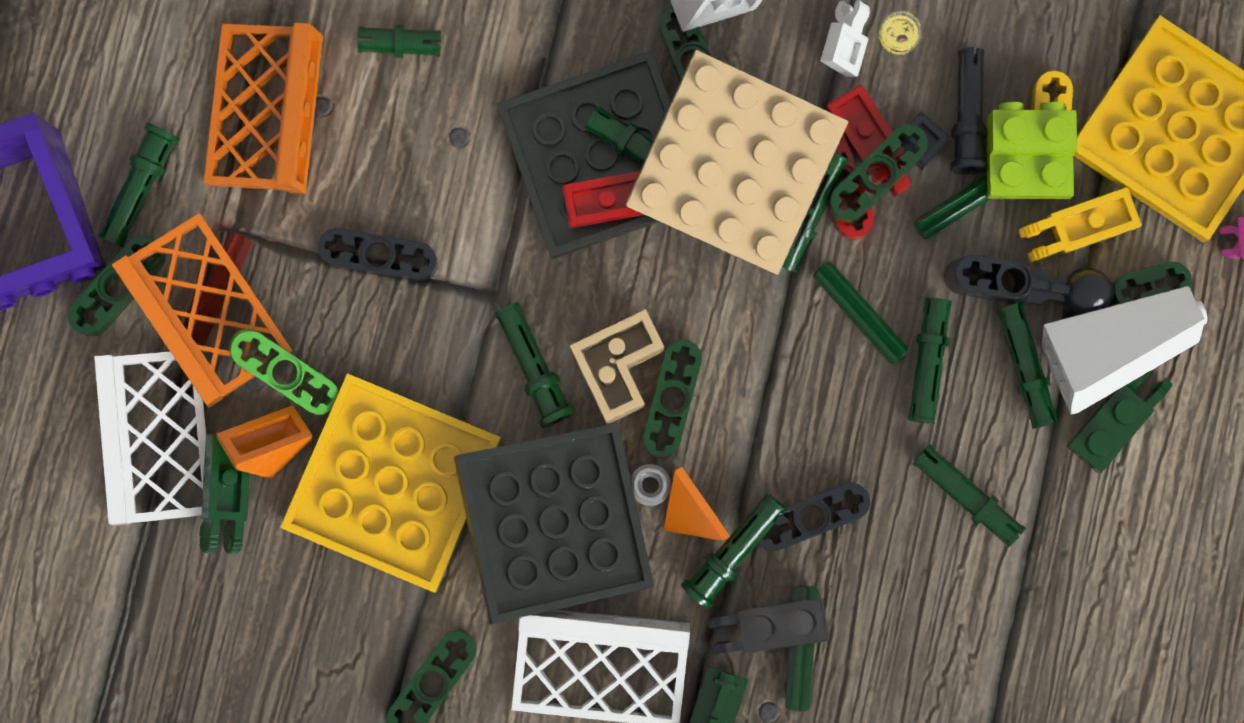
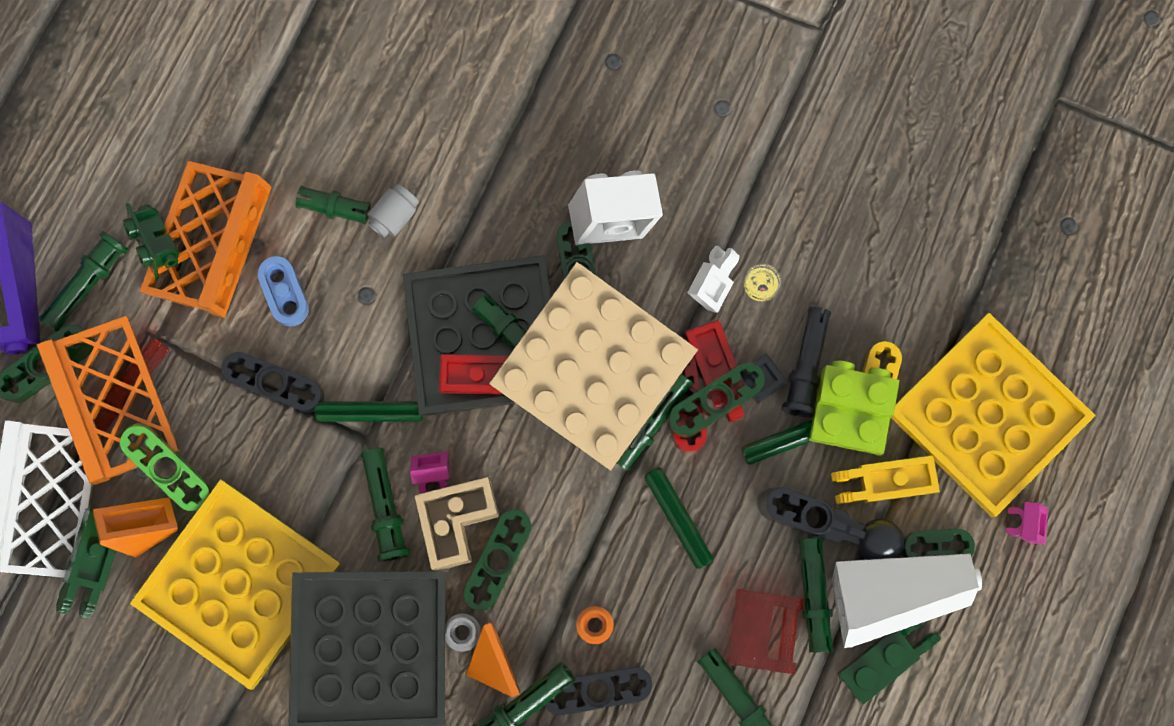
camera: 10 degrees right, 5 degrees down
(208, 134) = (152, 251): none -> dark green hinge
(367, 151) = (283, 293): none -> medium blue plate
(468, 35) = (392, 211): none -> light grey brick
(492, 265) = (368, 411): none -> dark green axle
(576, 314) = (430, 468): none -> dark pink tile
(806, 444) = (582, 625): none -> orange plate
(930, 358) = (730, 572): dark green pin -> none
(965, 416) = (752, 631): none -> clear red plate

